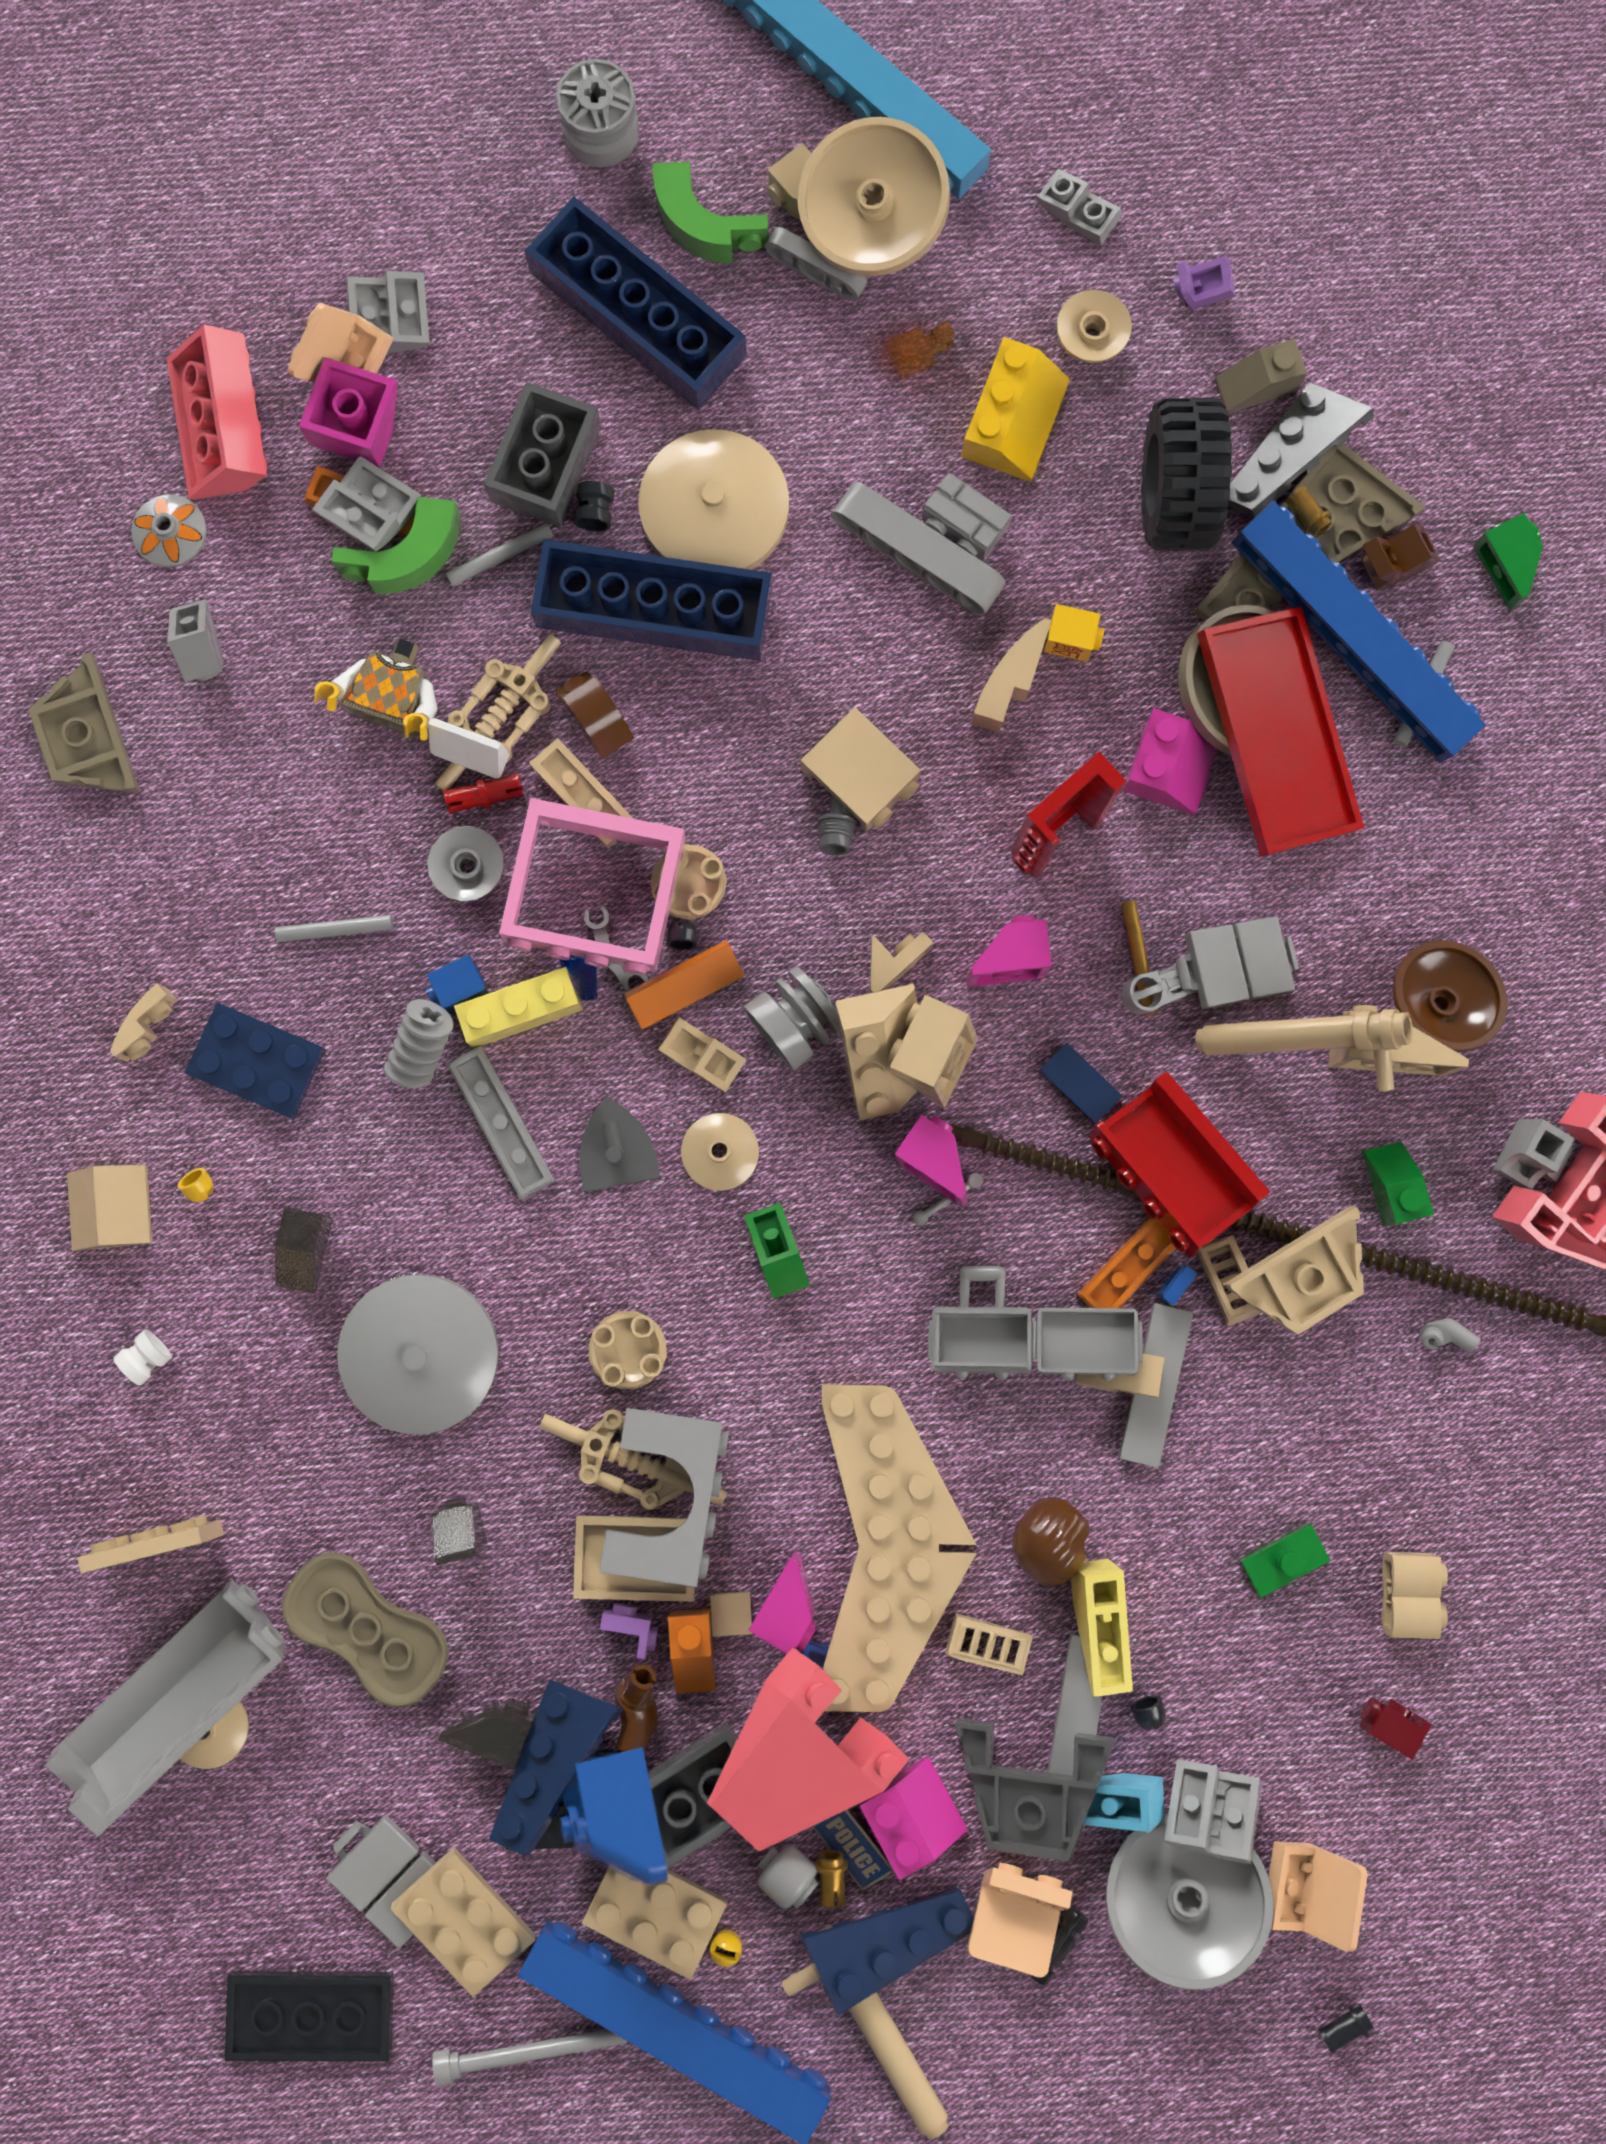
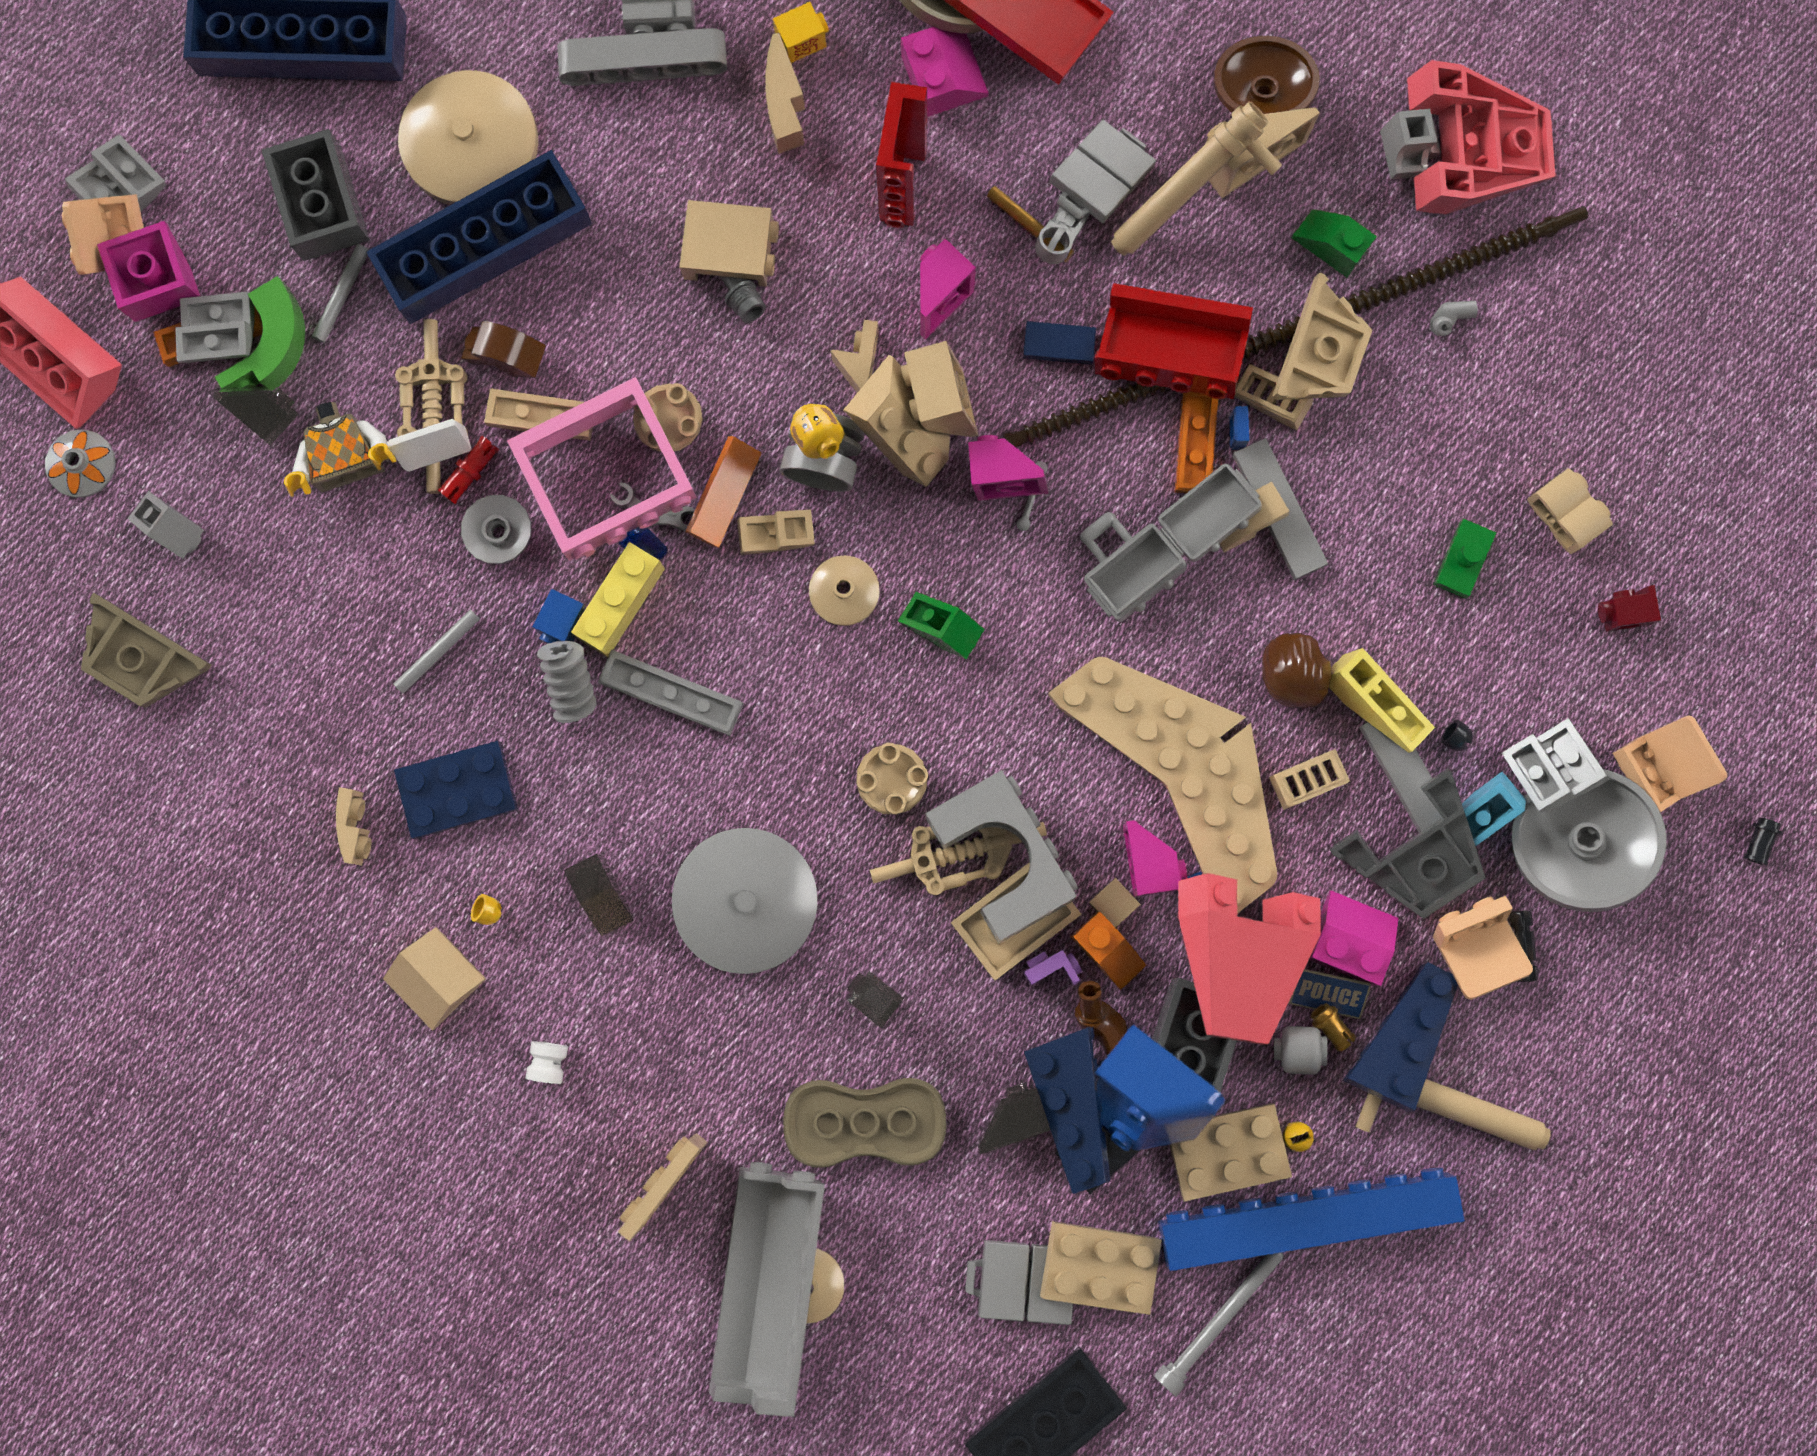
camera: 35 degrees left, 0 degrees up
(348, 602) = (259, 409): none -> clear smoke slope
(593, 507) = (380, 201): black wheel -> none
(615, 1149) = (768, 647): dark grey shield -> none
(681, 936) = (694, 459): black hinge -> none
(794, 1003) = (816, 431): none -> yellow head

